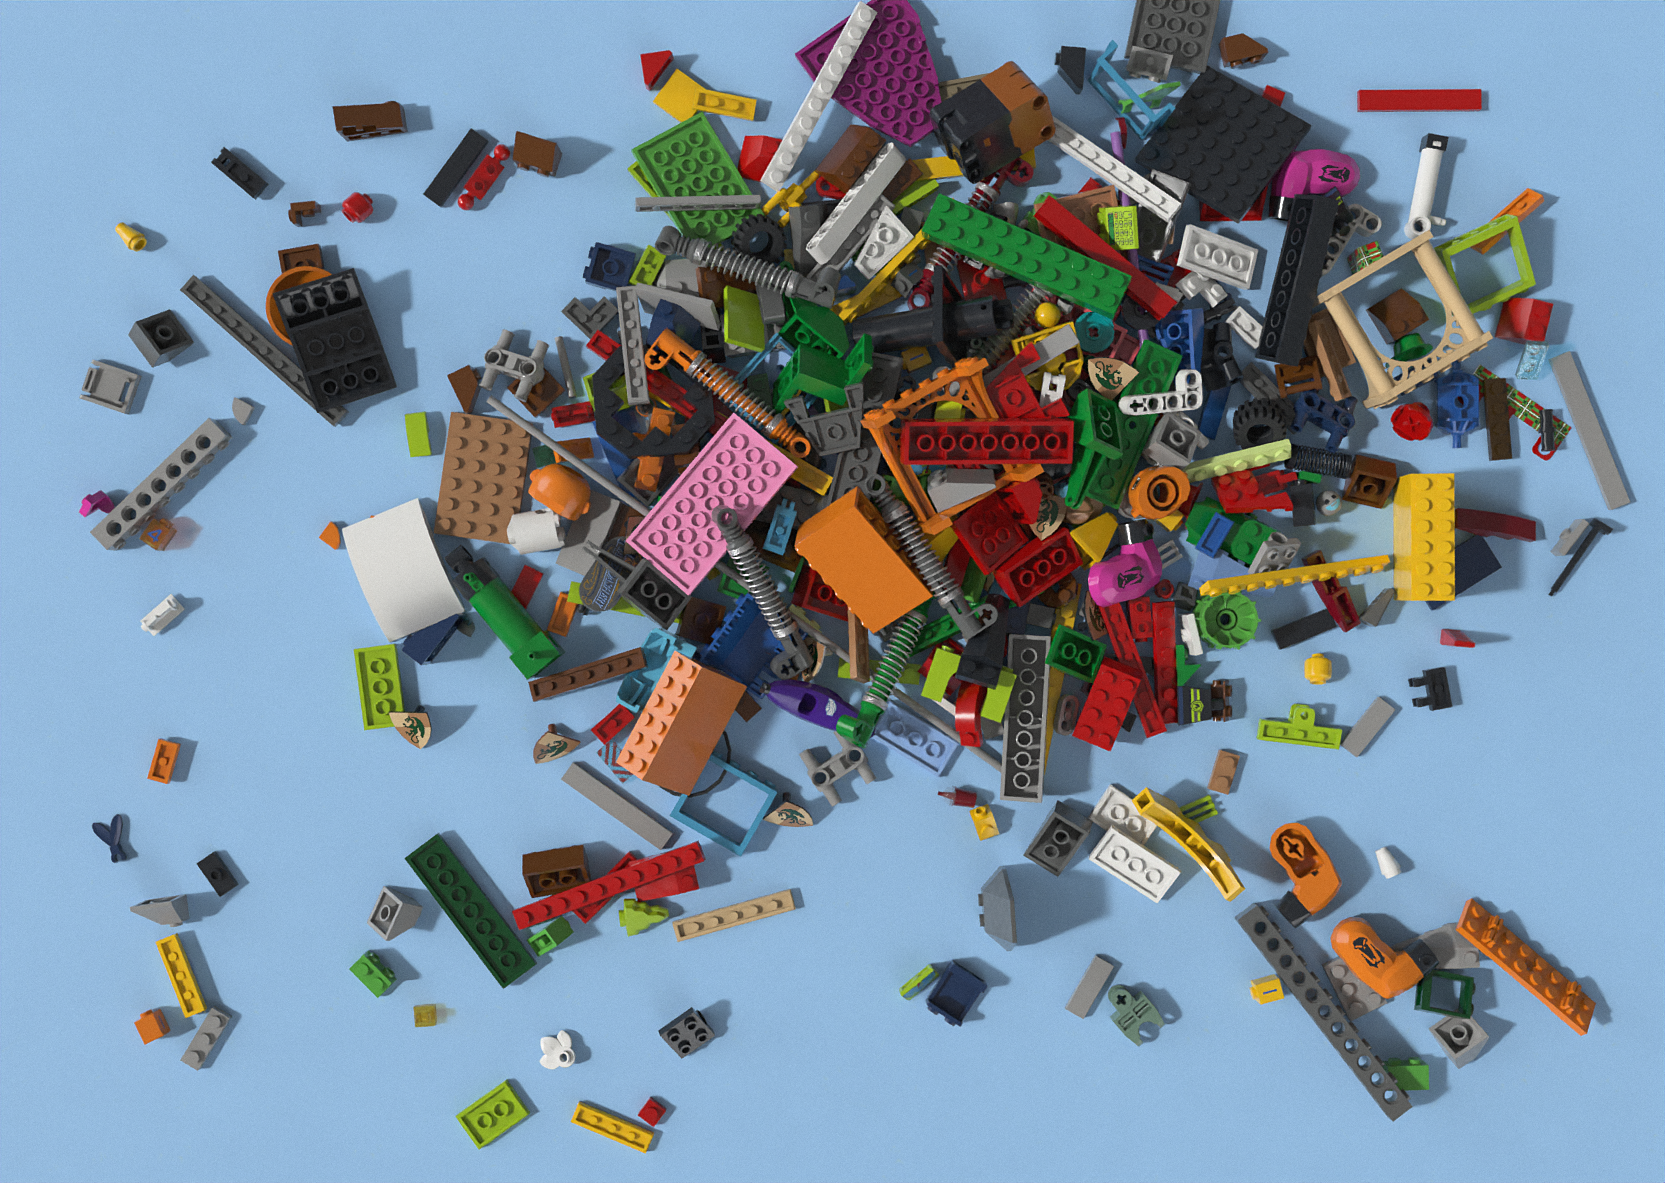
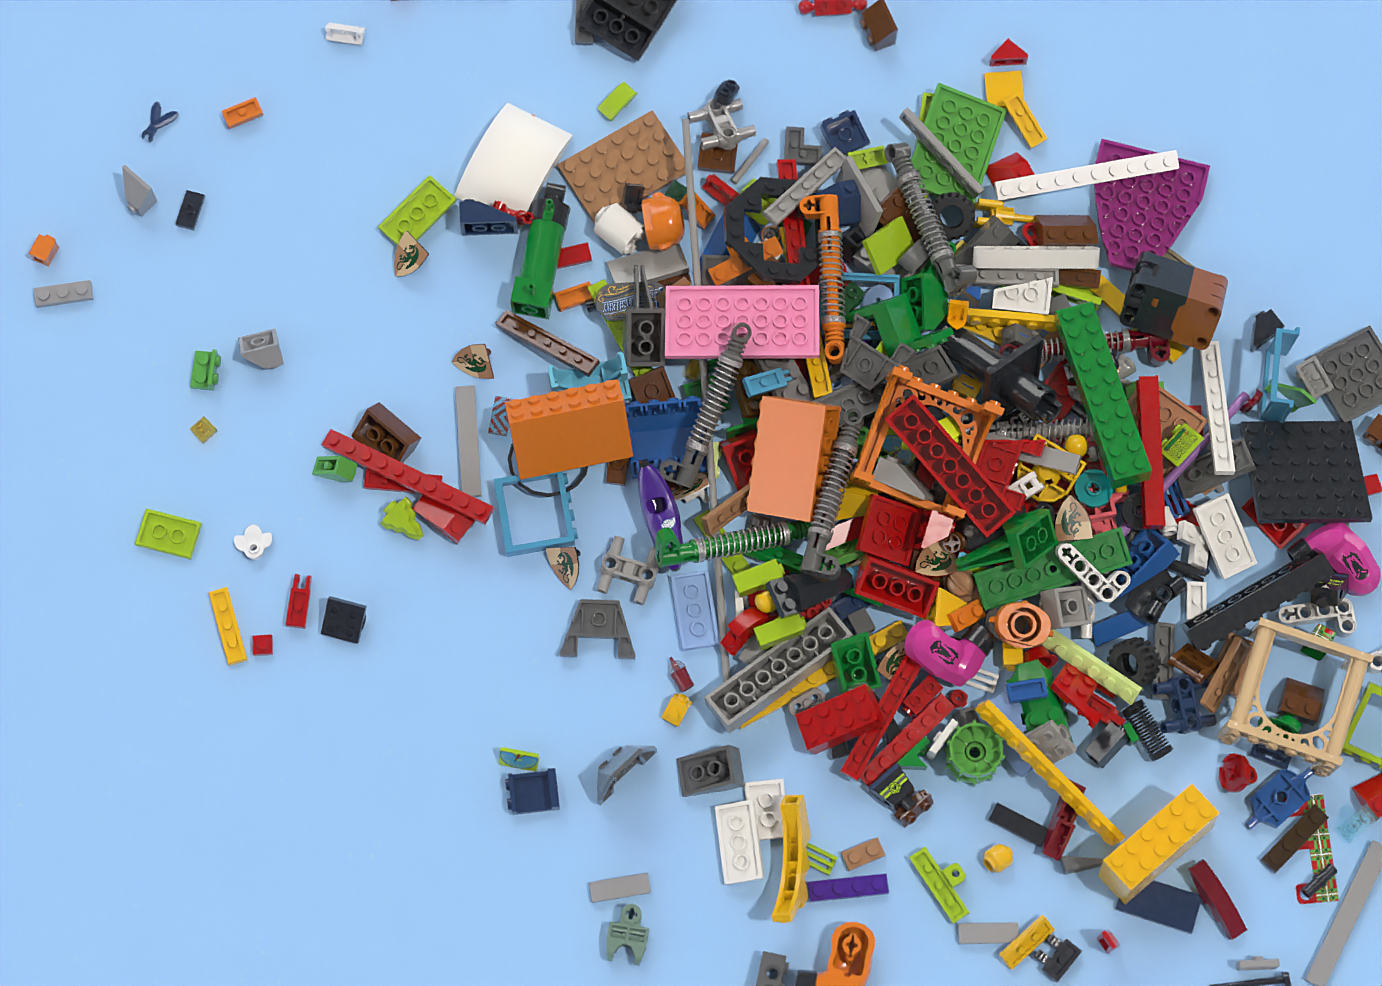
camera: 45 degrees right, 15 degrees down
(181, 975) = (96, 241): yellow plate -> none
(331, 535) = (496, 99): orange tile -> none
(456, 605) = (522, 216): none -> red piece
(465, 629) = (508, 238): dark grey hinge -> none
(466, 386) = (678, 105): reddish brown slope -> none
(470, 910) = (307, 400): dark green plate -> none
(488, 336) = (726, 92): none -> black plate
(518, 496) = (633, 197): none -> black bracket
(613, 723) = (523, 388): red plate -> none
(641, 1055) = (299, 603): none -> red hinge
(734, 915) = (457, 587): tan tile -> none
(853, 315) = (957, 313): none -> light orange plate
(859, 824) = (598, 620): none -> dark grey wing
(963, 687) = (764, 602): none -> yellow piece
(1063, 596) = (884, 626): reddish brown plate -> none
(1108, 527) = (966, 615): none -> orange plate
(1239, 806) = (848, 888): none -> dark purple plate
(1328, 503) = (1124, 763): light grey piece -> none
(1369, 481) = (1164, 780): reddish brown slope -> none
(1401, 703) = (1026, 942): none -> yellow tile

